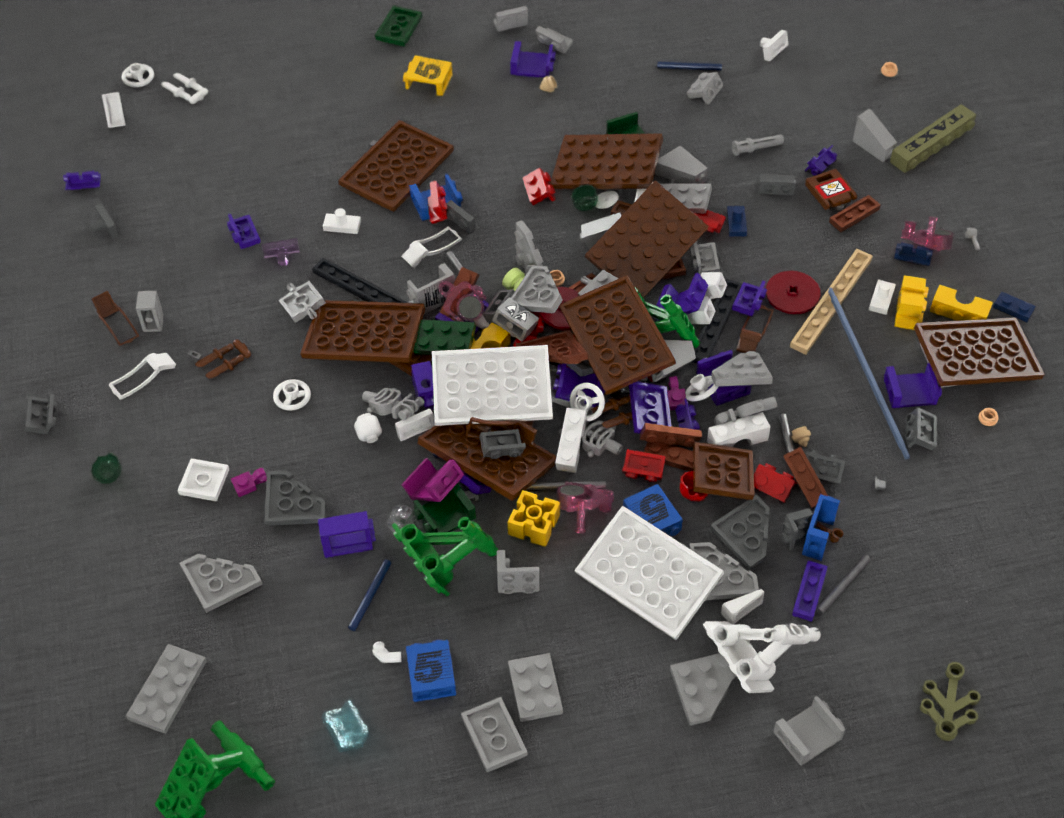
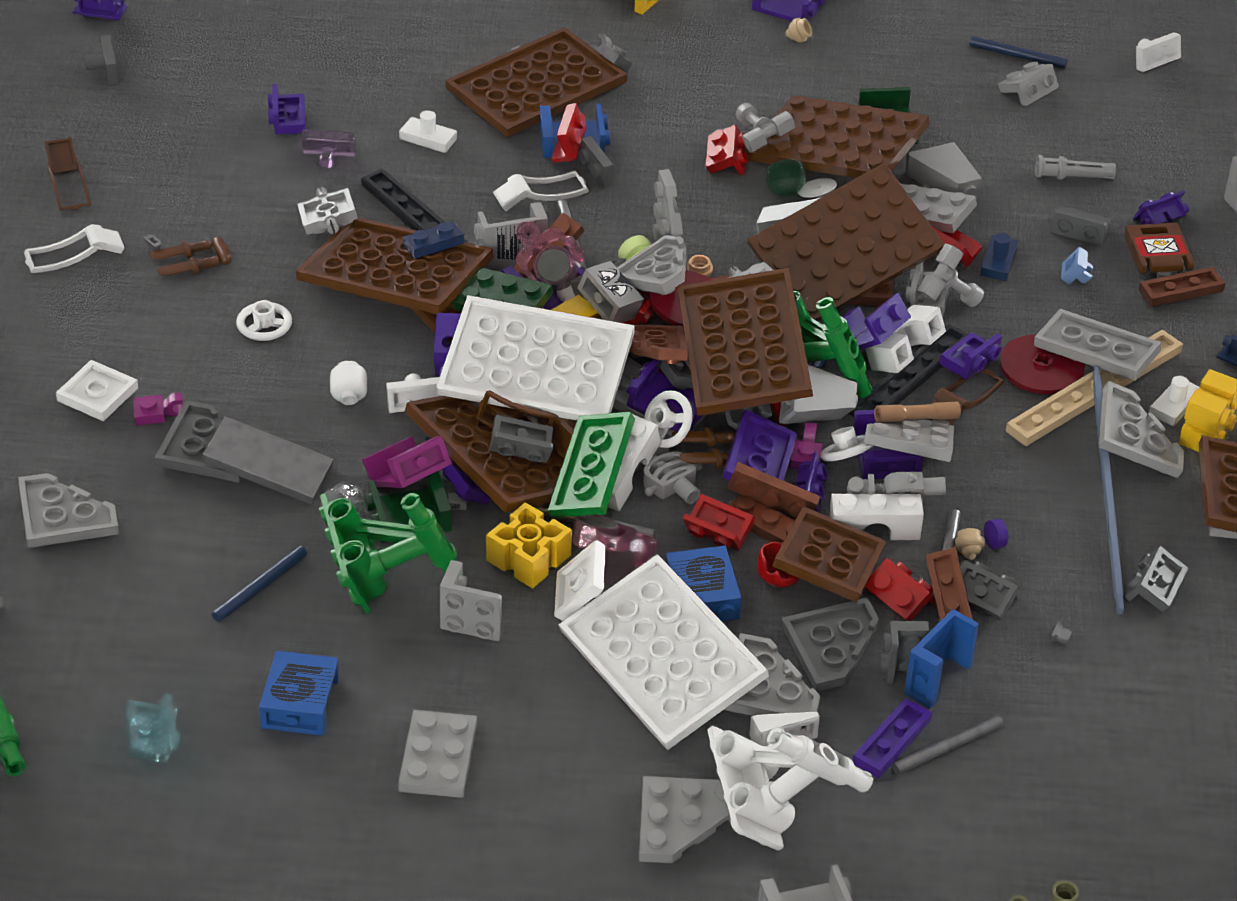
camera: 15 degrees right, 10 degrees down
(149, 311) = (115, 173): light grey brick -> none
(333, 499) = (267, 460): none -> flat silver tile
(350, 542) = (253, 514): dark purple window -> none
(383, 307) = (433, 239): none -> dark blue plate
(384, 655) = (245, 659): white arm -> none
(390, 401) = (395, 359): light grey torso -> none
(440, 132) = (615, 54): none -> flat silver plate
(494, 734) = (352, 793): light grey plate -> none
(555, 451) = (591, 464): none -> green plate
(559, 166) = (762, 127): none -> light grey bar
(577, 536) = (580, 580): none -> white plate
(717, 248) = (946, 276): none -> light grey bar
(746, 348) = (933, 411): none -> medium nougat piece
(786, 216) = (1076, 267): none -> medium blue tile
(814, 424) = (996, 534): none -> dark purple tile
(824, 271) = (1097, 344): none -> light grey plate
(837, 531) = (960, 675): reddish brown hand -> none
(870, 329) = (1135, 434): none -> light grey plate
(912, 389) = (1164, 526): dark purple panel -> none

